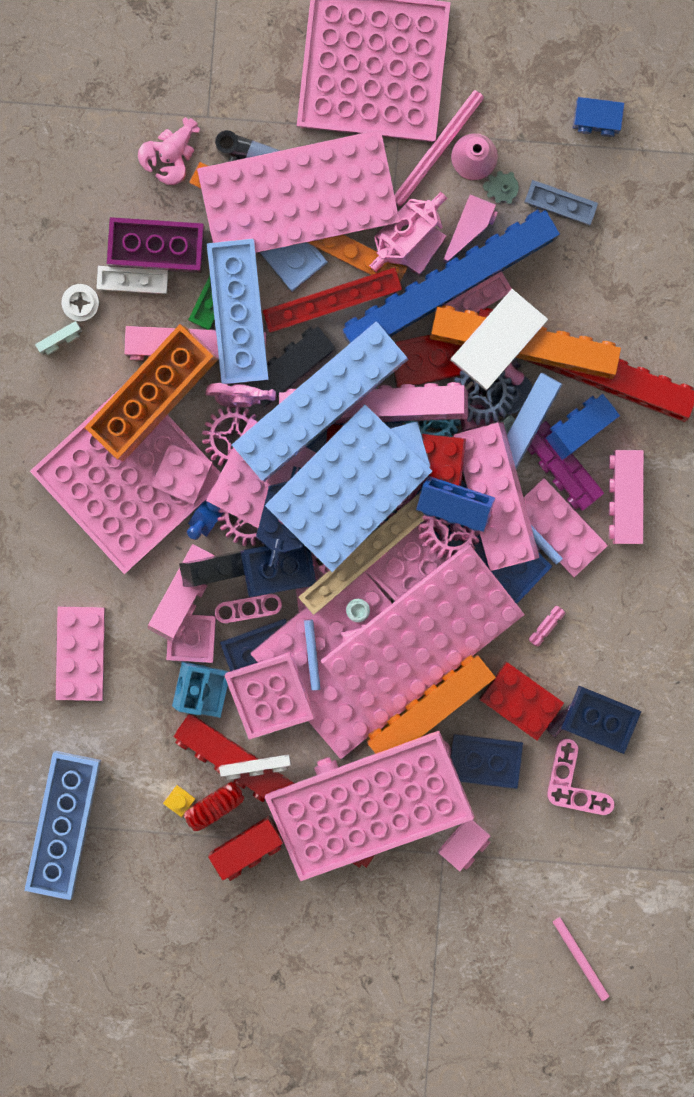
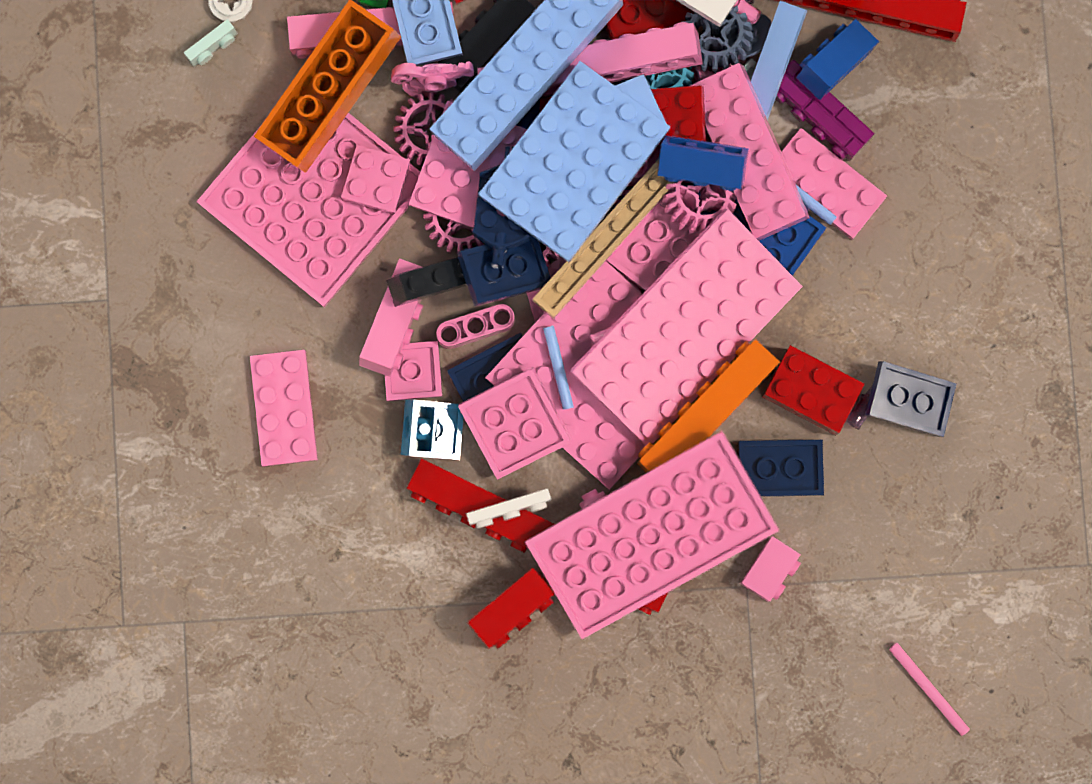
camera: 10 degrees left, 5 degrees down
(62, 825) = (289, 612): light blue brick -> none
(179, 800) = (424, 566): yellow plate -> none
(203, 520) = (408, 230): blue piece -> none
(214, 806) = (466, 564): red gear -> none
(357, 610) = (605, 307): light aqua plate -> none
(547, 626) = (830, 300): bright pink axle -> none
(565, 784) = (880, 482): bright pink beam -> none
(627, 496) = (901, 135): bright pink brick -> none

